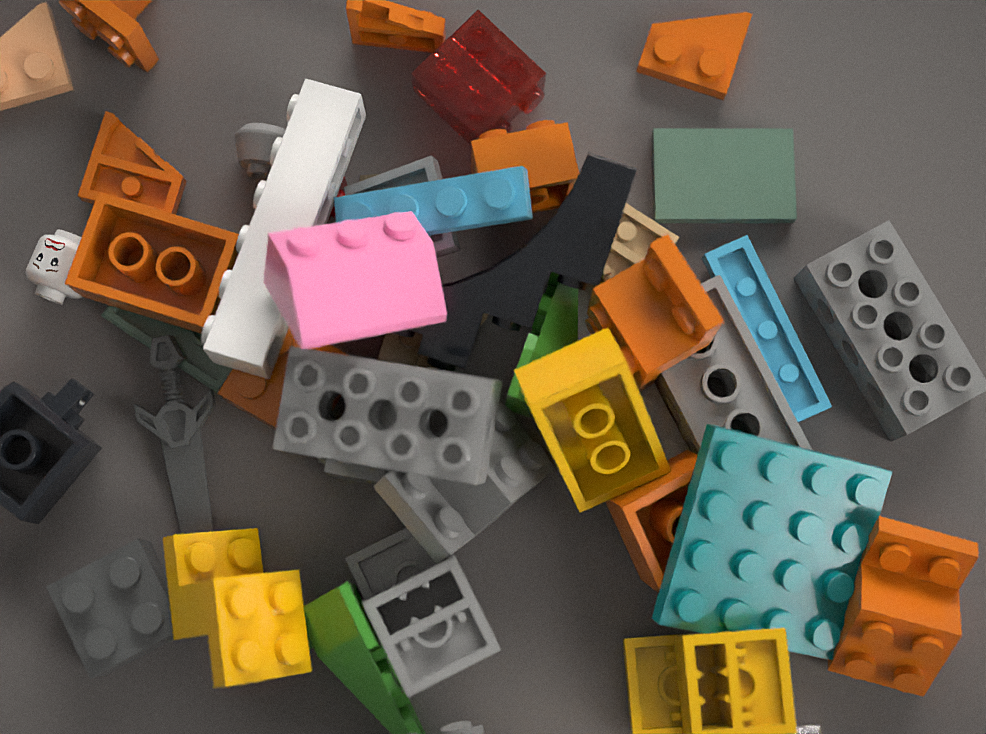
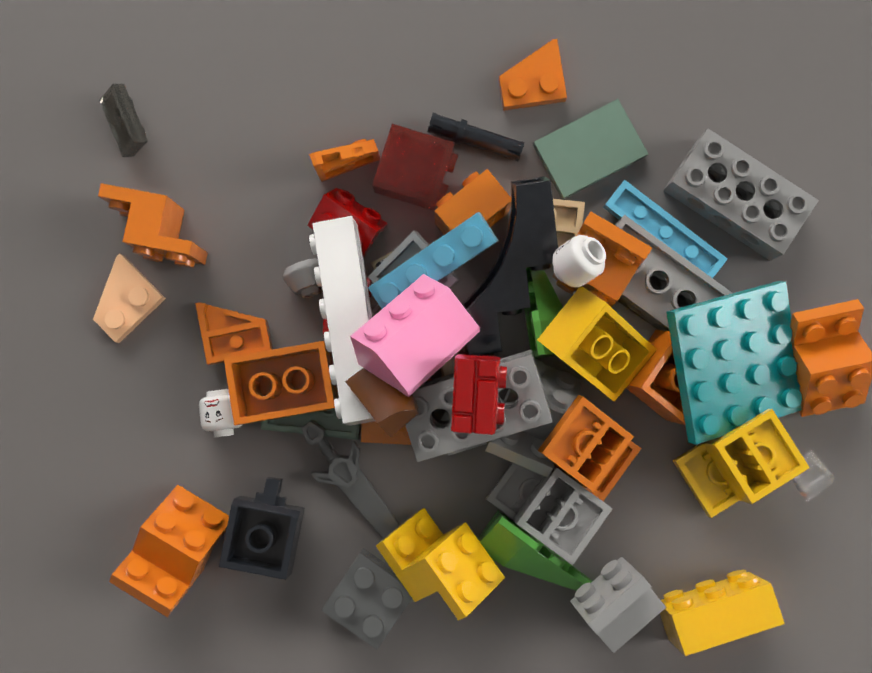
camera: 20 degrees left, 5 degrees up
(267, 344) = (384, 403): none -> reddish brown slope
(383, 118) = (340, 204): none -> red bracket
(392, 391) = (476, 394): none -> red brick
(515, 557) = (590, 447): none -> orange bracket
(567, 72) = (475, 136): none -> black pin
(620, 291) = (579, 260): none -> white head

